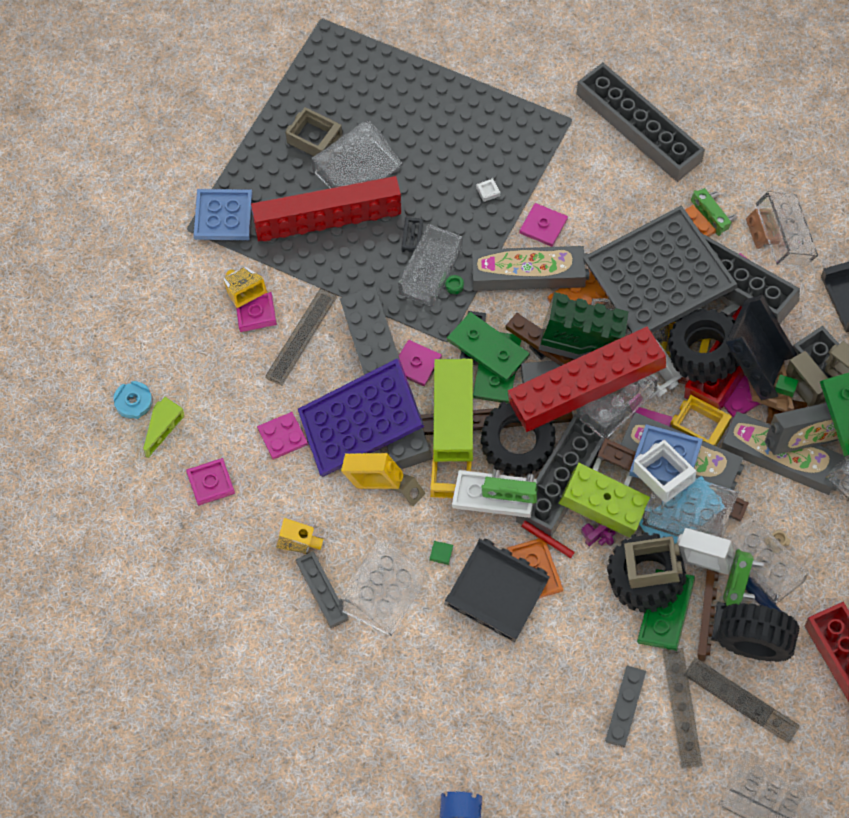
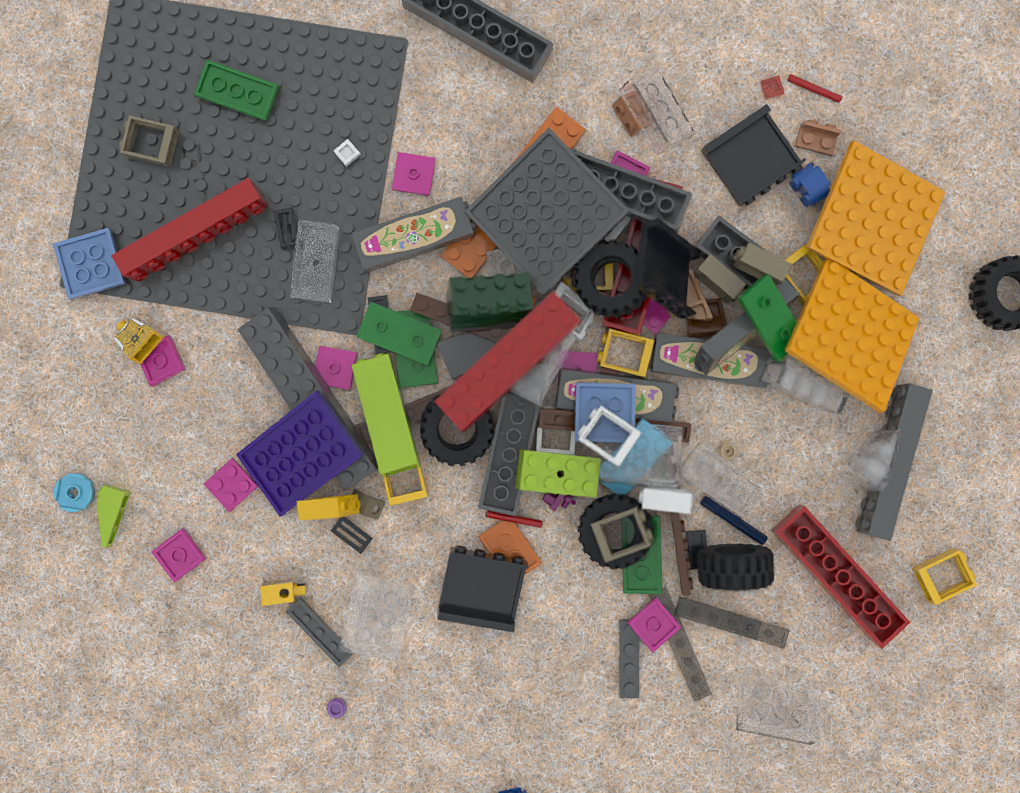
camera: 20 degrees left, 25 degrees up
(300, 337) = (214, 373): clear smoke tile -> none
(313, 666) = (336, 707): none -> medium lavender plate
(356, 158) = (203, 160): clear slope -> none
(392, 524) = (357, 529): none -> black tile
(405, 116) = (236, 90): none -> green plate
(441, 552) = (418, 559): green tile -> none
(454, 284) = (345, 272): green tile -> none
(469, 496) = (452, 497): white plate -> none
(510, 489) = (466, 496): bright green piece -> none
(660, 676) = (654, 624): none -> dark pink plate
(711, 211) = (576, 109): bright green piece -> none
(738, 578) = (702, 510): bright green piece -> none
(786, 385) = (699, 293): green tile -> none

